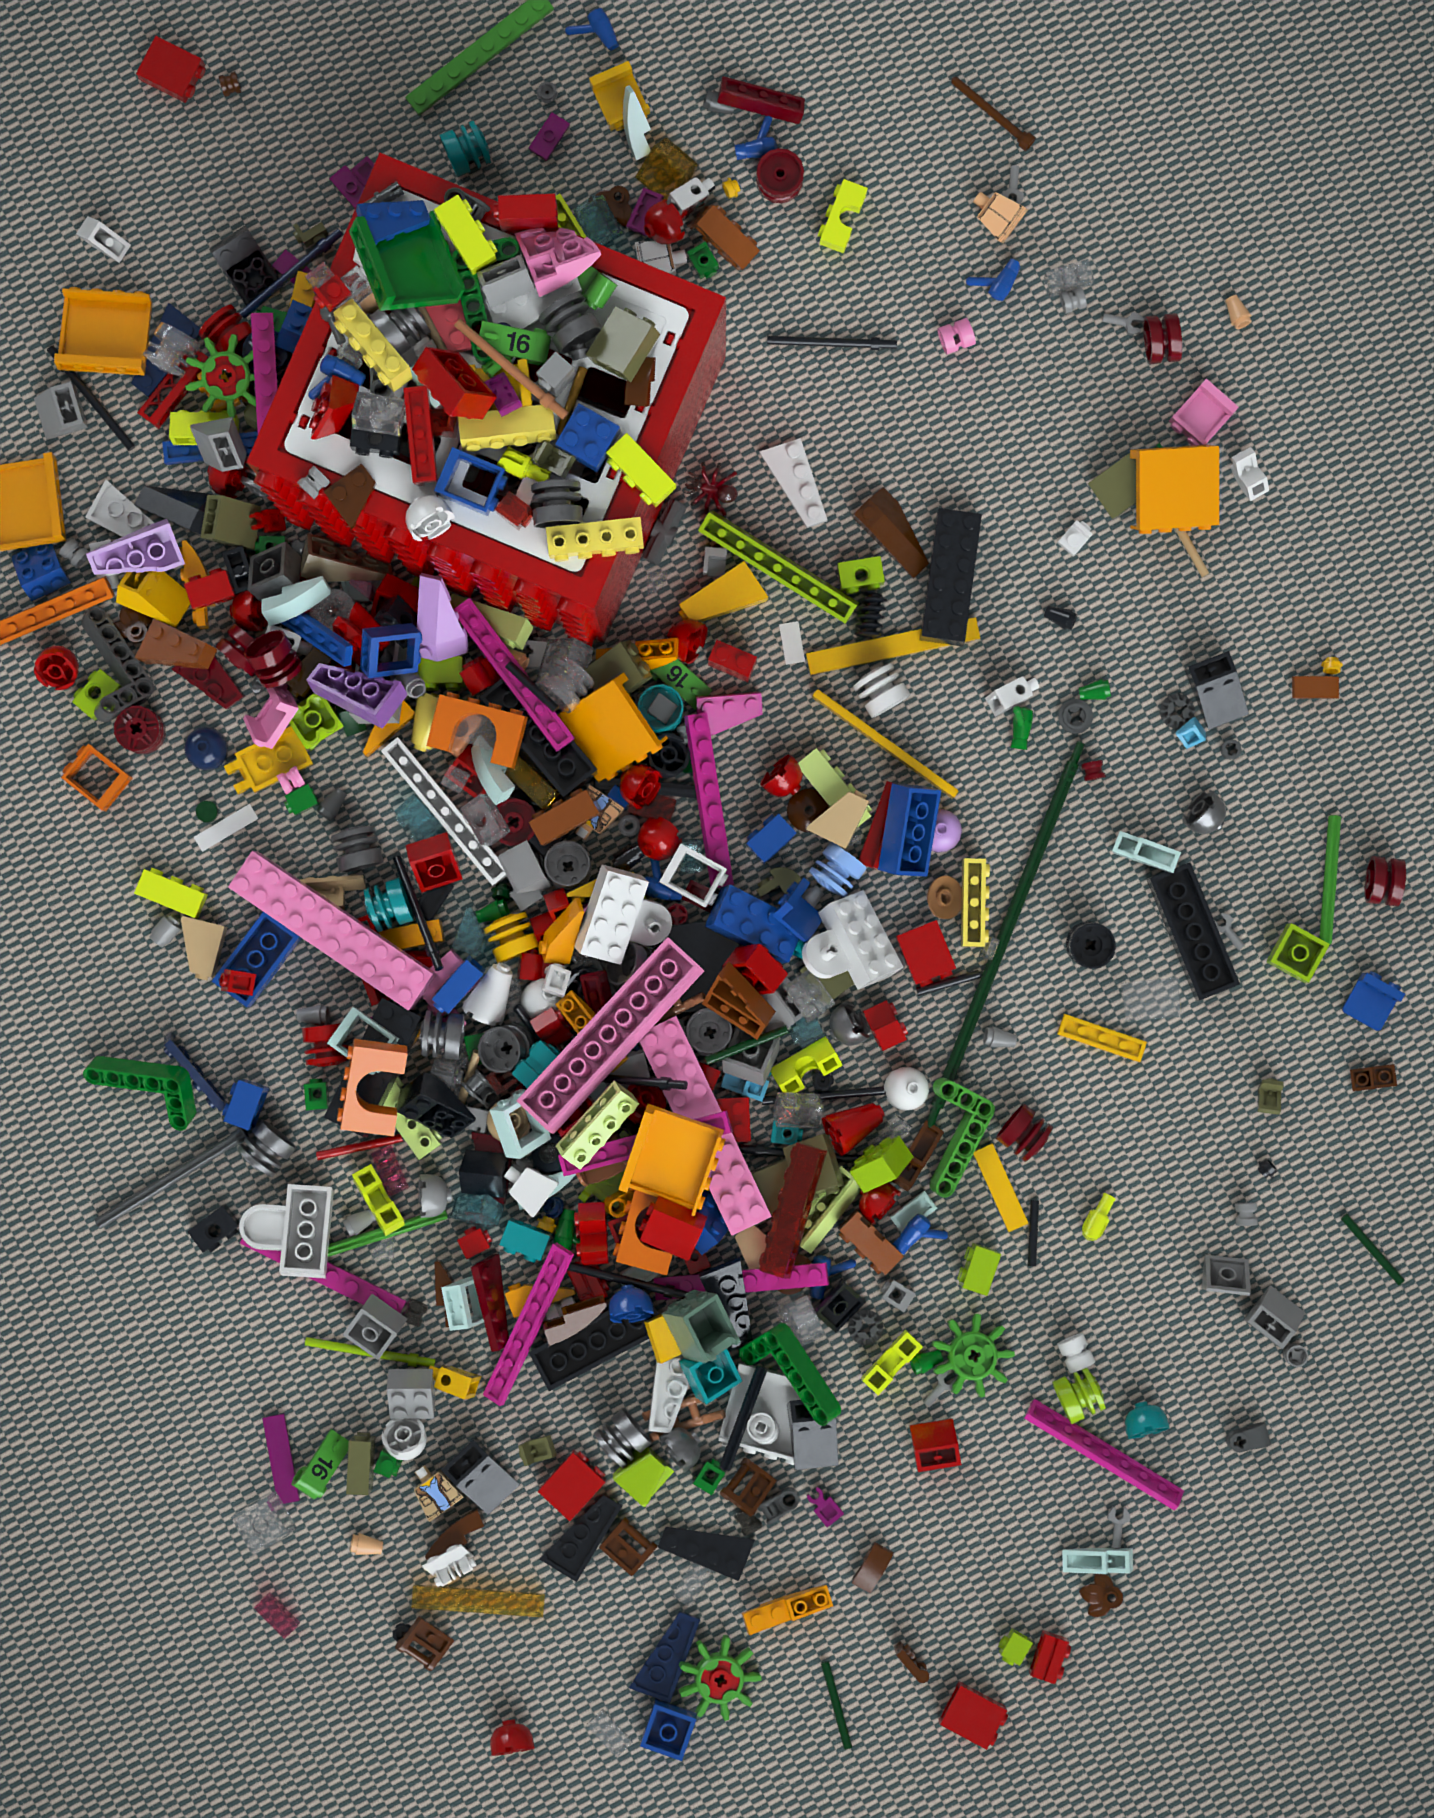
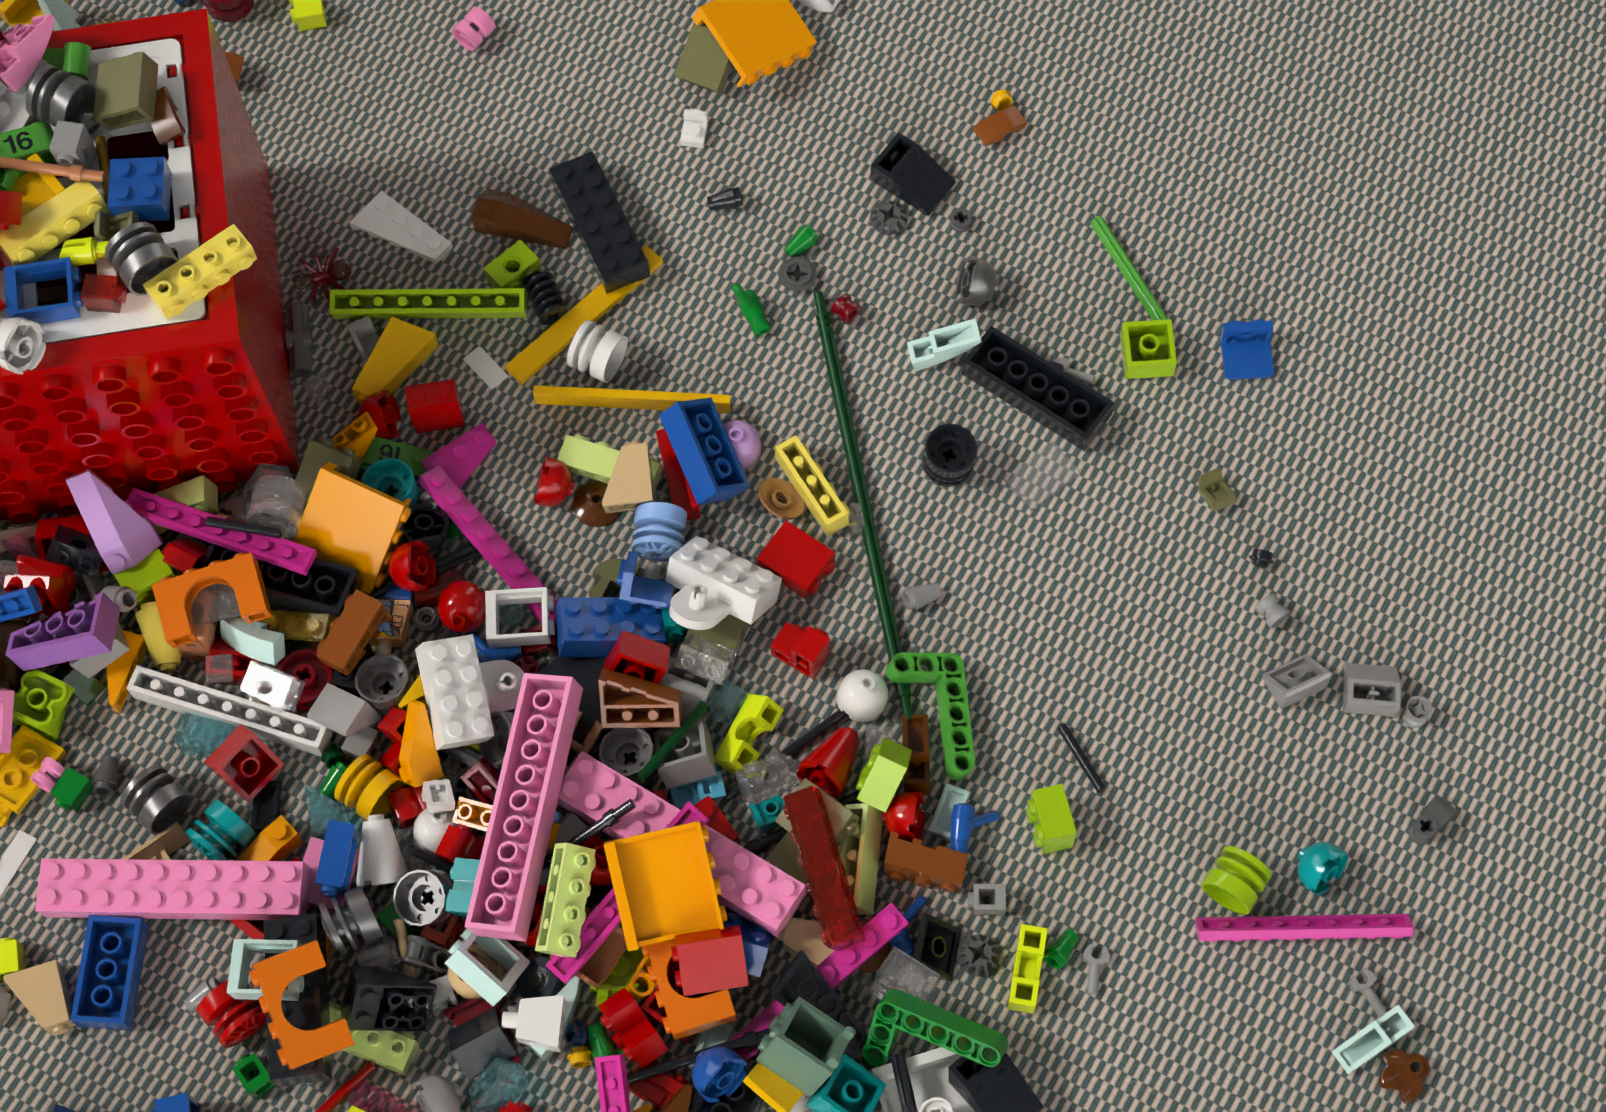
camera: 30 degrees left, 20 degrees down
(237, 982) = (98, 1000): red bracket -> none
(370, 648) = (56, 583): blue window -> none
(431, 948) = (287, 840): black bar -> none
(506, 396) = (33, 194): magenta plate -> none
(525, 1240) = (565, 1082): teal brick -> none
(640, 471) = (210, 189): neon yellow brick -> none
(662, 708) = (390, 482): dark grey slope -> none
(697, 1262) = (756, 993): red brick -> none
(771, 838) = (574, 542): blue brick -> none
(829, 1080) = (776, 734): black plate -> none
(848, 1026) = (764, 671): flat silver cylinder -> none
(873, 343) = (401, 78): black bar -> none
(935, 1445) = (1129, 1026): red slope -> none
(948, 982) = (838, 575): black bar -> none
(961, 1348) = (1100, 898): bright green gear -> none
(1000, 1187) = (1019, 735): yellow tile -> none
(1011, 694) = (718, 288): white torso -> none
(1024, 1132) = (1006, 662): dark red wheel -> none
(1076, 1353) = (1204, 843): white wheel -> none
(1097, 1219) = (1134, 704): neon yellow arm -> none
(1101, 1038) = (1019, 537): yellow tile -> none
(1191, 733) = (914, 227): medium azure slope -> none
(1192, 552) = (807, 81): tan bar -> none
(1373, 1077) = (1299, 419): reddish brown slope -> none
(1374, 1251) = (1415, 571): dark green bar -> none
(1385, 881) = (1181, 239): dark red wheel -> none

